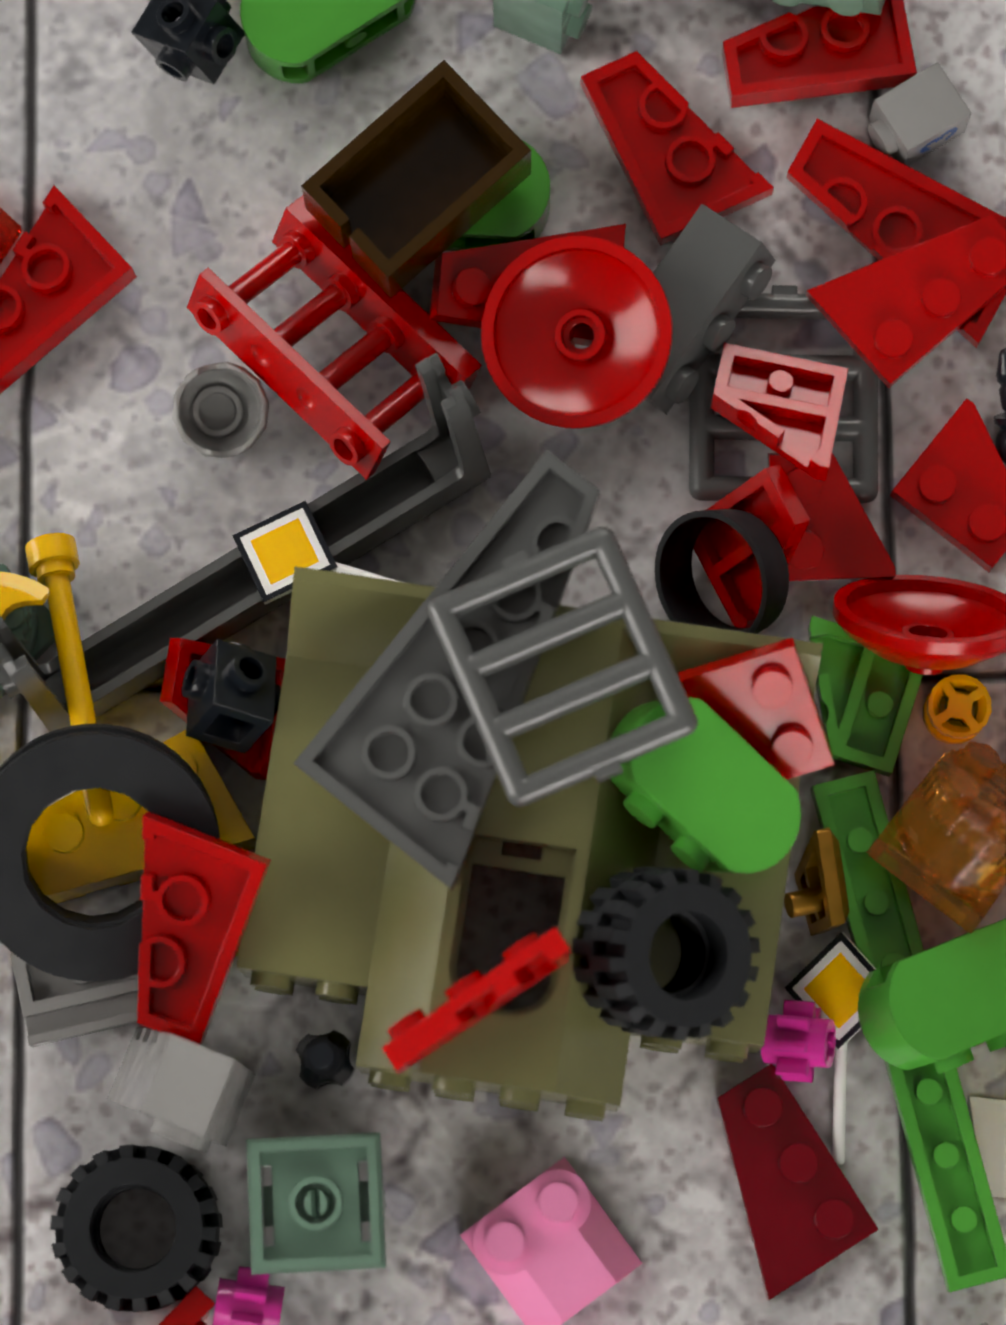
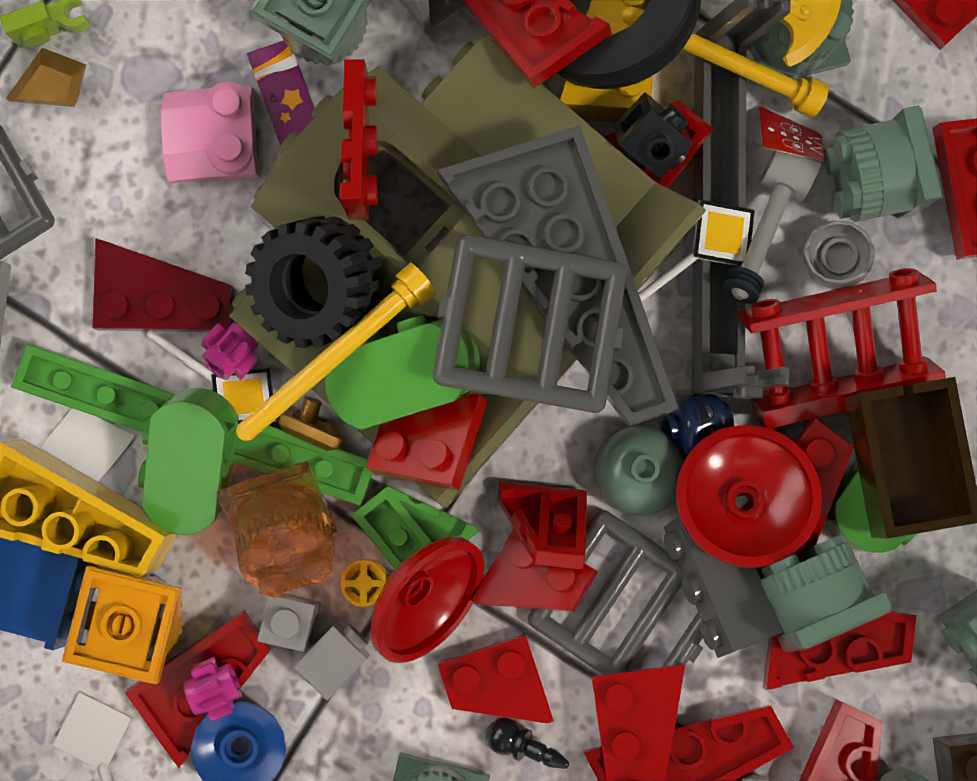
camera: 120 degrees right, 5 degrees up
(91, 419) = (884, 168): none -> sand green piece
(113, 553) = (788, 136): none -> red sticker
(161, 524) = (788, 178): none -> light grey piece
(325, 1060) = (404, 67): black piece -> none
(445, 1189) = (282, 88): none -> magenta sticker
(517, 442) = (696, 419): none -> dark blue head
(609, 834) = (409, 289): none -> yellow piece
(634, 476) = (638, 470): none -> sand green cylinder
(635, 185) = (820, 595): none -> sand green piece
(675, 575) = (541, 461): black tyre -> none
(782, 403) = (622, 599): wing -> none

